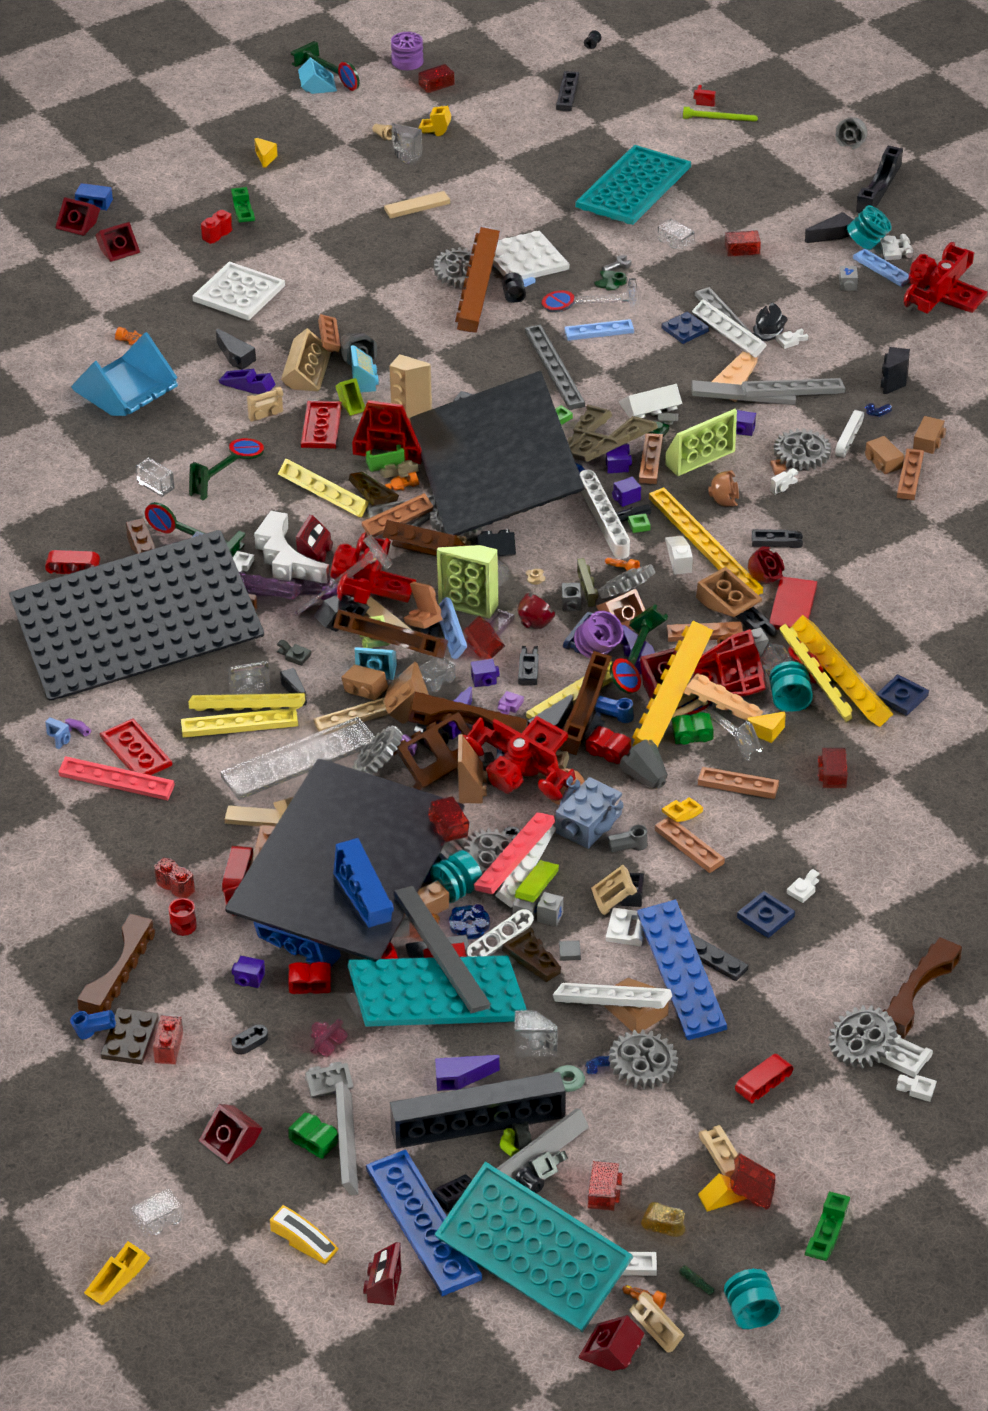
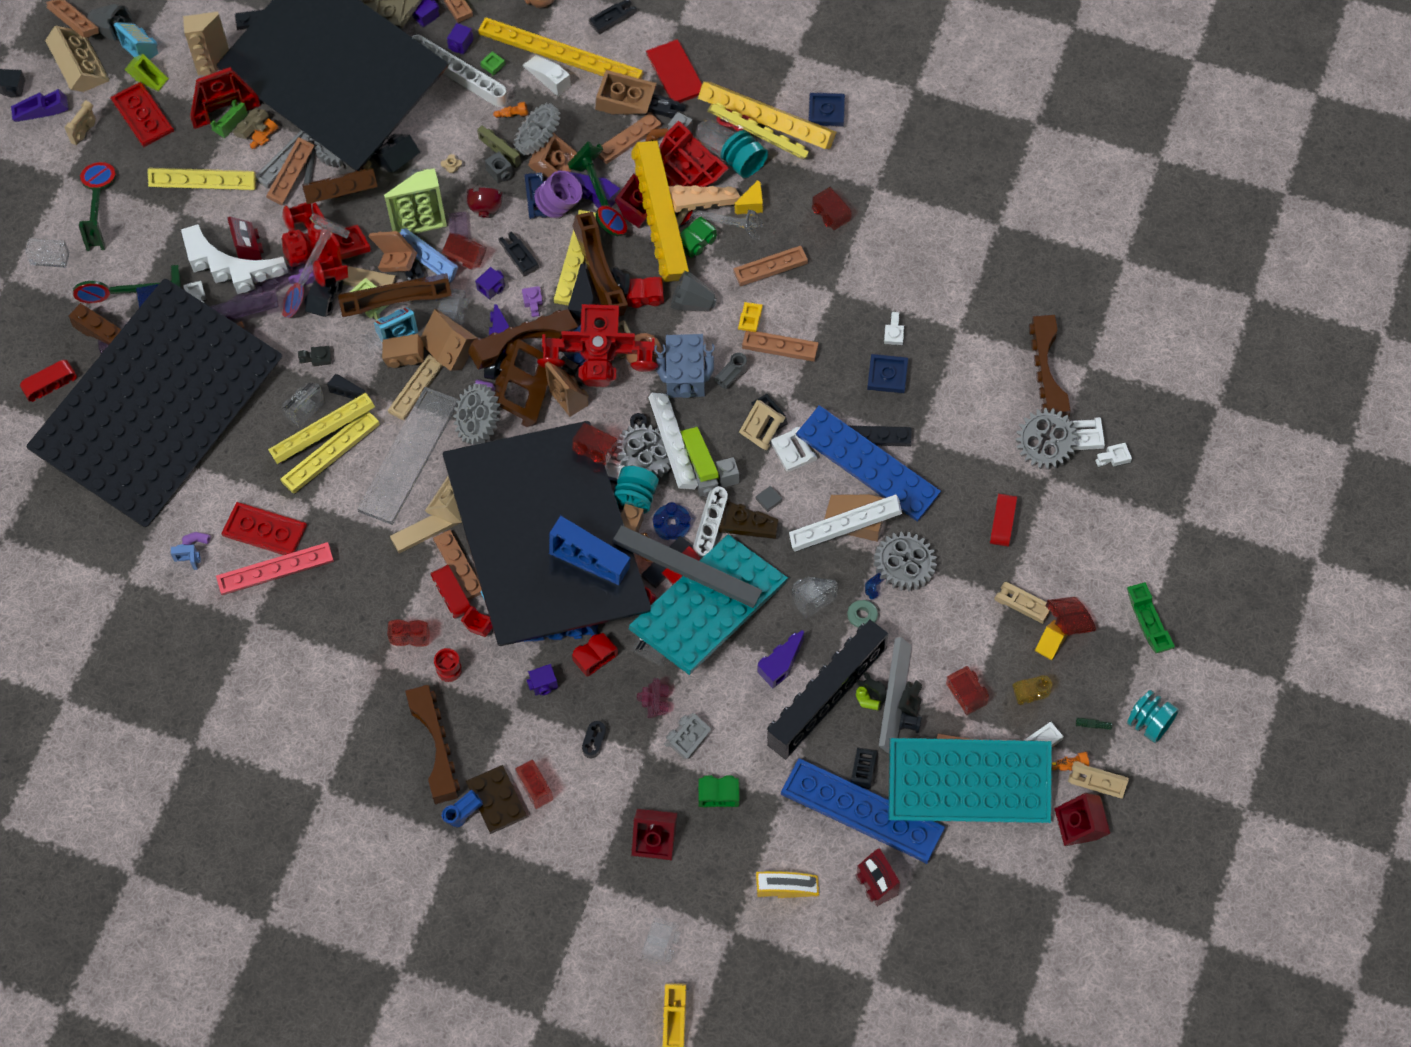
camera: 35 degrees left, 20 degrees up
(346, 1139) = (746, 778): light grey tile -> none
(372, 490) = (245, 156): dark brown wing -> none
(514, 853) = (664, 441): coral plate -> none
(619, 708) = (620, 253): blue piece -> none
(644, 509) = (481, 54): black axle -> none
(765, 566) = (631, 49): dark red cylinder -> none

